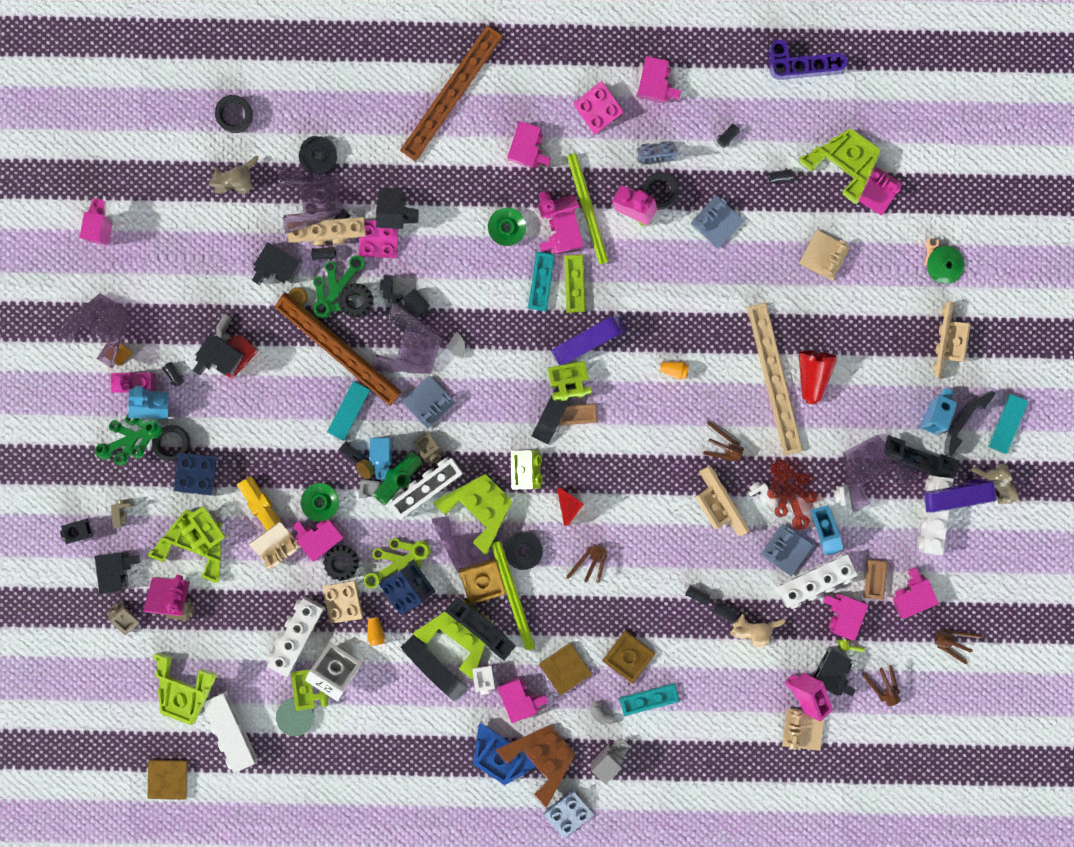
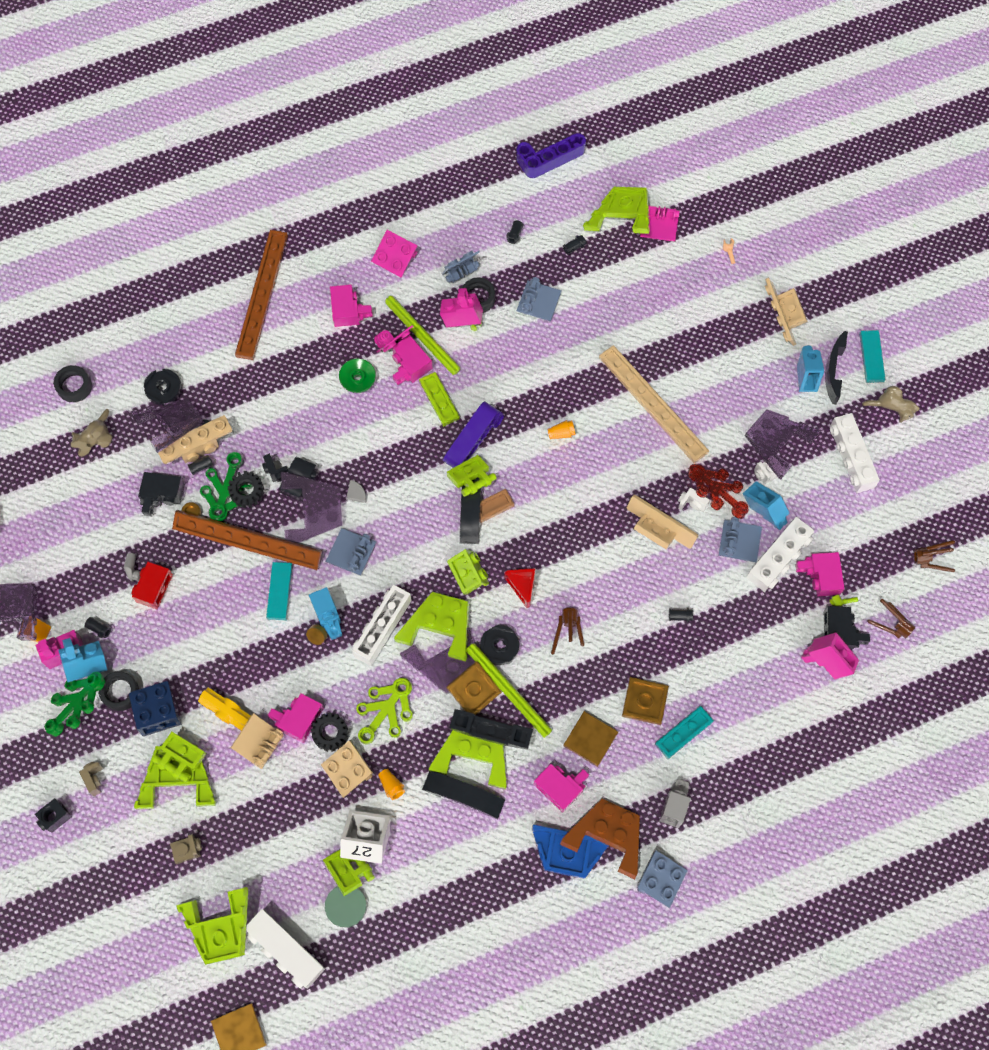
camera: 30 degrees left, 20 degrees down
(111, 570) = (102, 839): black hinge -> none
(122, 618) = (130, 882): dark tan bracket -> none
(167, 596) = (168, 838): dark pink hinge -> none
(217, 353) = (134, 582): black hinge -> none
(295, 637) = (314, 822): white brick -> none
(310, 500) = (279, 677): green dish -> none
(350, 452) = (295, 625): black pin -> none
(367, 488) = (327, 653): light grey tile -> none
(378, 241) = (247, 432): dark pink hinge -> none
(392, 209) = (249, 399): black hinge -> none
(403, 472) = (350, 627): green piece -> none
(407, 588) = (403, 727): dark blue bracket -> none
(428, 448) = (369, 591): dark tan bracket -> none
(483, 679) = (517, 781): white bracket -> none
(541, 281) = (408, 409): teal tile -> none
(598, 714) = (645, 768): light grey arm -> none
(653, 82) = (433, 217): dark pink hinge -> none
(725, 612) = (714, 619): black pin -> none
(732, 450) = (647, 475): reddish brown plant -> none
(757, 633) = (752, 624): tan animal -> none
(802, 731) = (842, 696): tan hinge -> none
(815, 374) = (686, 381): red cone -> none
(824, 255) = (644, 289): tan hinge -> none
(875, 579) = (832, 532): medium nougat tile -> none
(916, 597) = (876, 529): dark pink hinge -> none
(918, 460) = (813, 416): black slope -> none
(937, 264) = (746, 261): green dish -> none
(960, 496) = (871, 418): dark purple beam -> none

